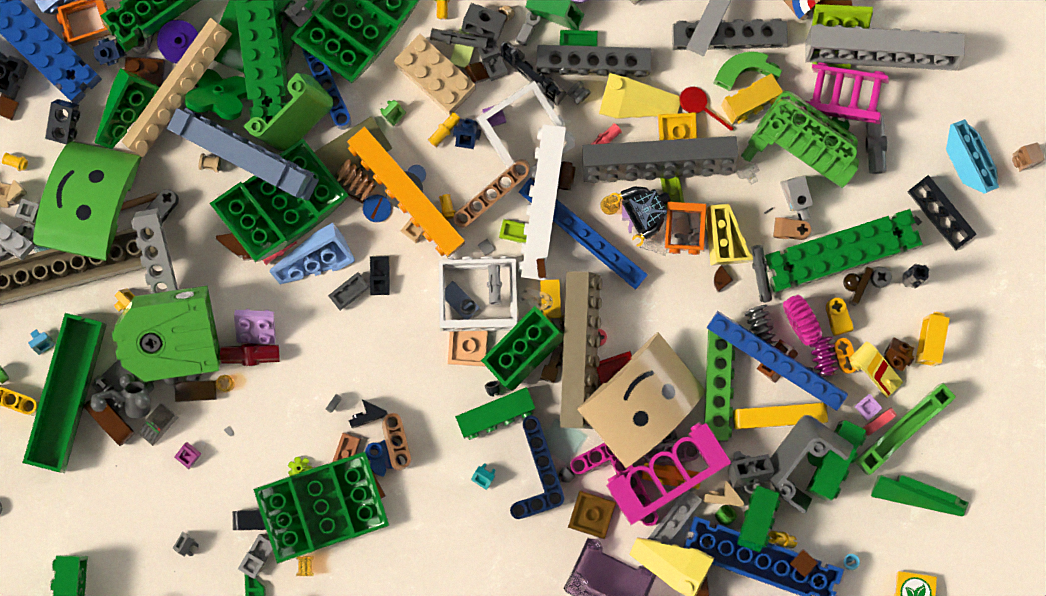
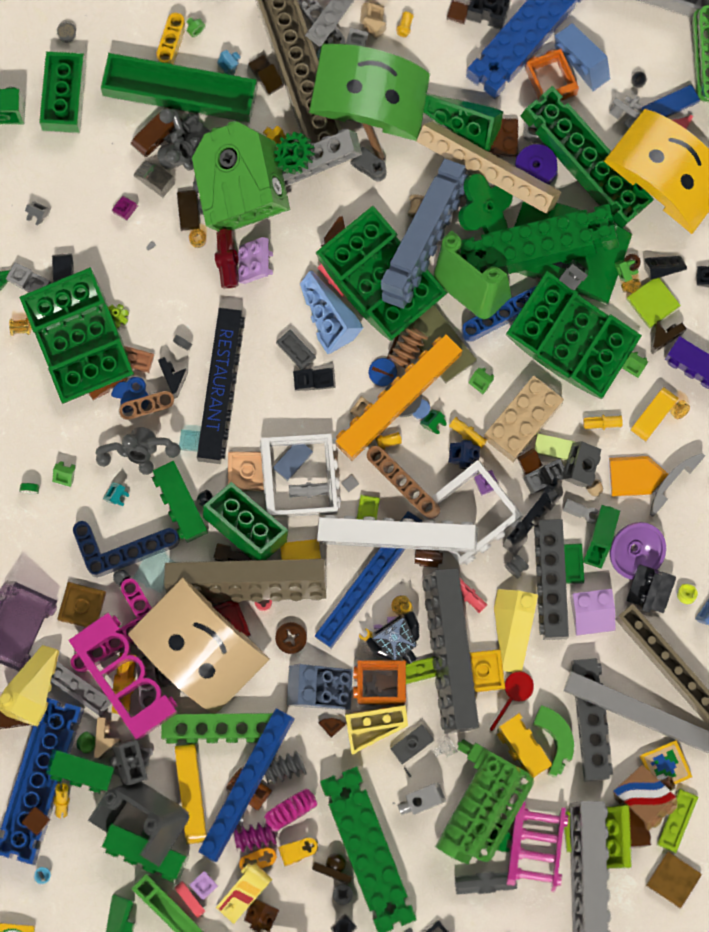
camera: 85 degrees right, 5 degrees down
(56, 305) = (266, 74): none -> dark brown slope
(58, 119) = (447, 59): black brick -> none
(58, 513) = (62, 92): none -> green brick
(108, 51) = (519, 100): dark blue brick -> none
(155, 284) = (294, 153): none -> green gear
(380, 368) = (219, 386): none -> black brick
(430, 162) = (432, 420): none -> green tile
(433, 401) = (189, 440): none -> clear light blue plate
(441, 450) = (138, 448): none -> dark grey wheel
(458, 38) = (563, 440): dark grey pin -> none
(460, 527) = (63, 474): none -> bright green tile
(469, 310) = (281, 467): black hinge -> none
(472, 562) = (29, 488): none -> green tile
(535, 294) = (295, 532): clear beam -> none
(541, 267) = (328, 535): reddish brown tile -> none
(626, 24) = (593, 611): none -> lavender slope
(638, 304) = (294, 629): none -> reddish brown gear
(685, 288) = (319, 687): none -> sand blue slope
(743, 204) = (412, 744): none -> dark grey plate
(760, 265) = (345, 762): dark grey pin -> none
(787, 229) = (388, 792): medium nougat piece -> none

